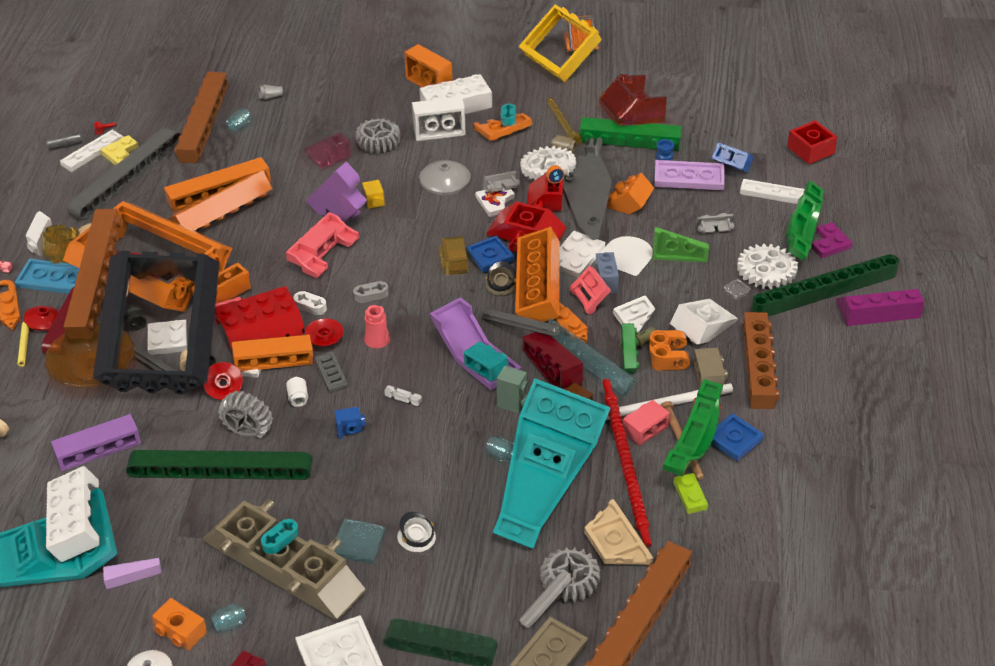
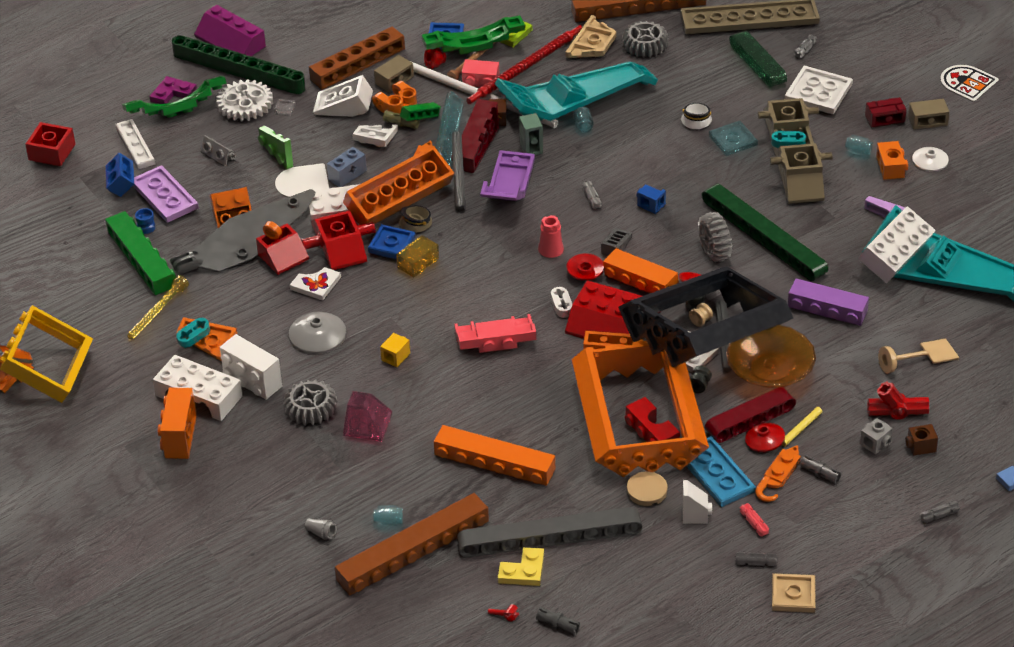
camera: 130 degrees left, 0 degrees up
(56, 241) = (687, 468): clear yellow brick -> none
(89, 151) = (545, 591): white tile -> none
(92, 274) = (707, 388): dark orange brick -> none
(224, 201) = (519, 424): brick -> none
(297, 391) = (656, 242): white brick -> none
(339, 194) = (437, 342): medium lavender brick -> none
(370, 292) = (509, 278): light grey beam -> none
(485, 360) = (520, 159): teal brick -> none
(496, 182) = (293, 284): light grey hinge -> none
(540, 160) = (237, 274): white gear -> none
(545, 599) = (678, 32): light grey axle -> none
(564, 142) = (198, 281): dark tan brick -> none
(593, 285) = (375, 156): coral plate -> none
(628, 103) = (109, 266): clear red windscreen -> none

